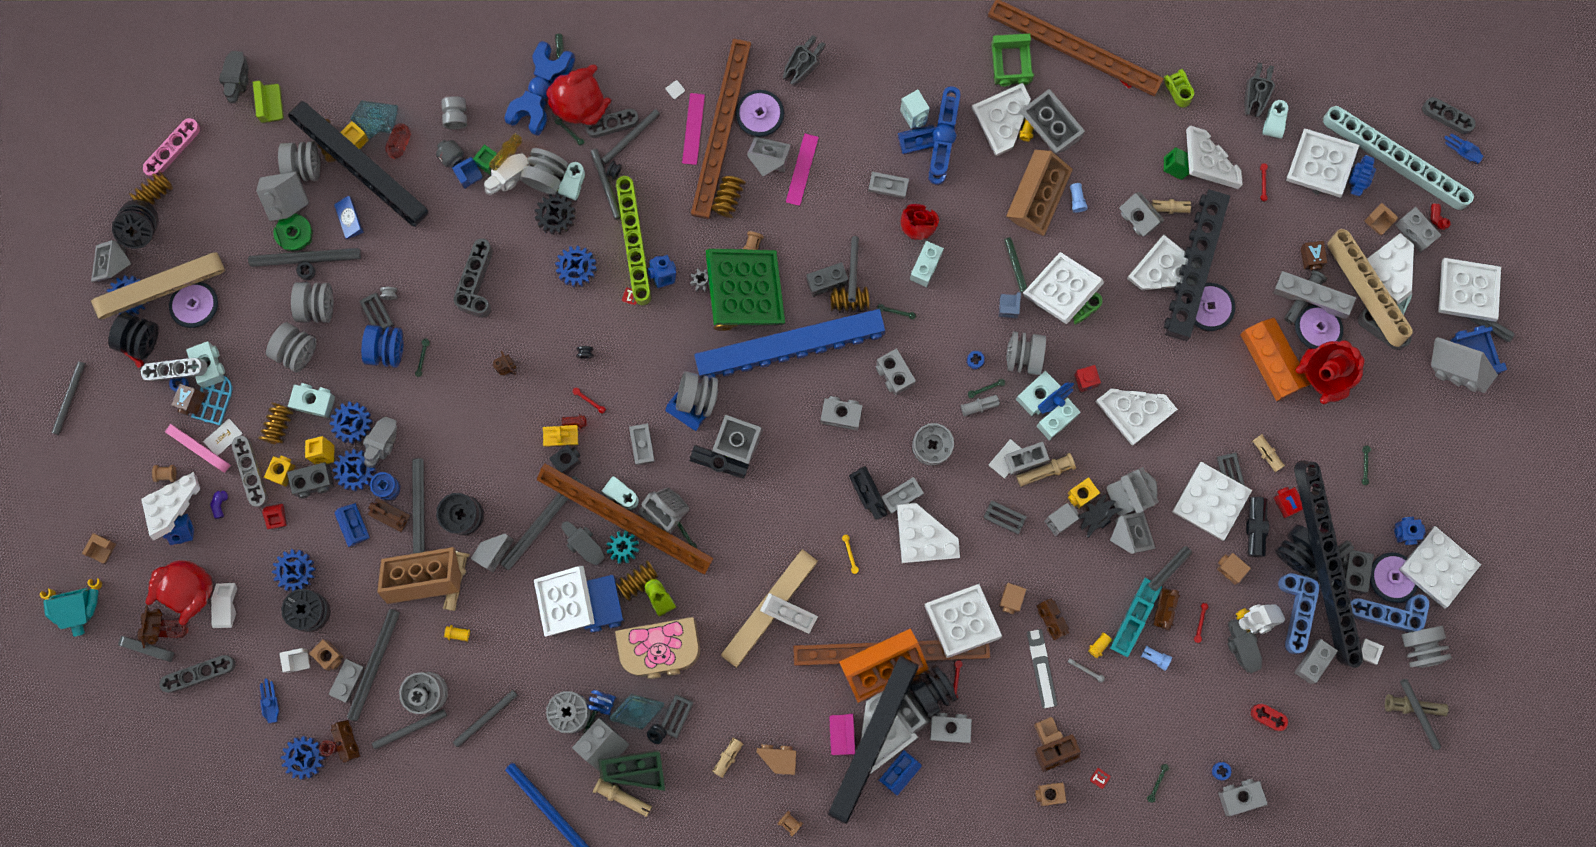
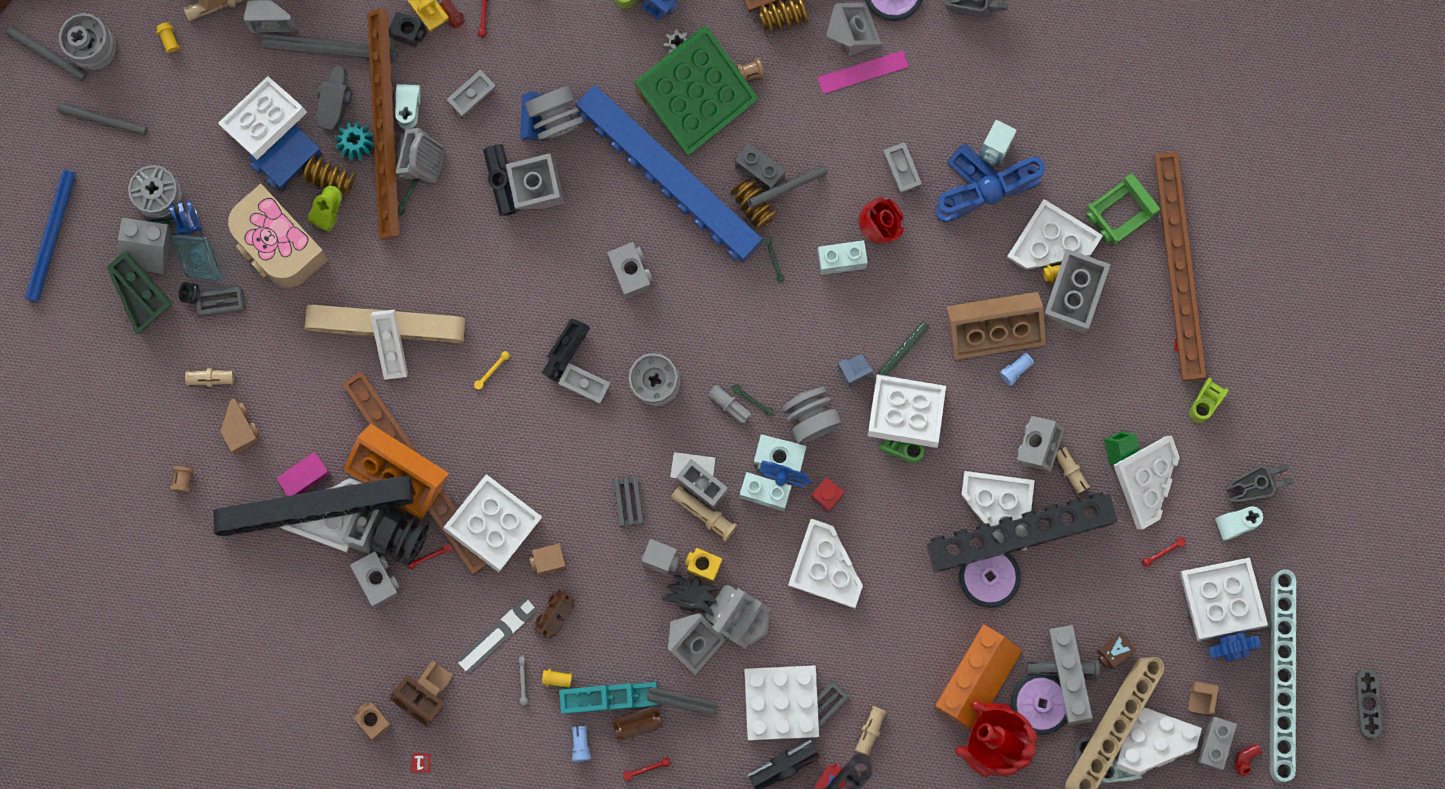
camera: 55 degrees right, 0 degrees up
(613, 793) = (105, 288): tan pin -> none
(900, 370) = (712, 299): light grey brick -> none
(900, 772) = (301, 558): blue slope -> none
(923, 536) = (556, 431): white plate -> none
(980, 363) = (775, 363): blue bush -> none
(1233, 568) = (723, 765): medium nougat brick -> none
(1466, 149) = (1342, 745): blue piece -> none

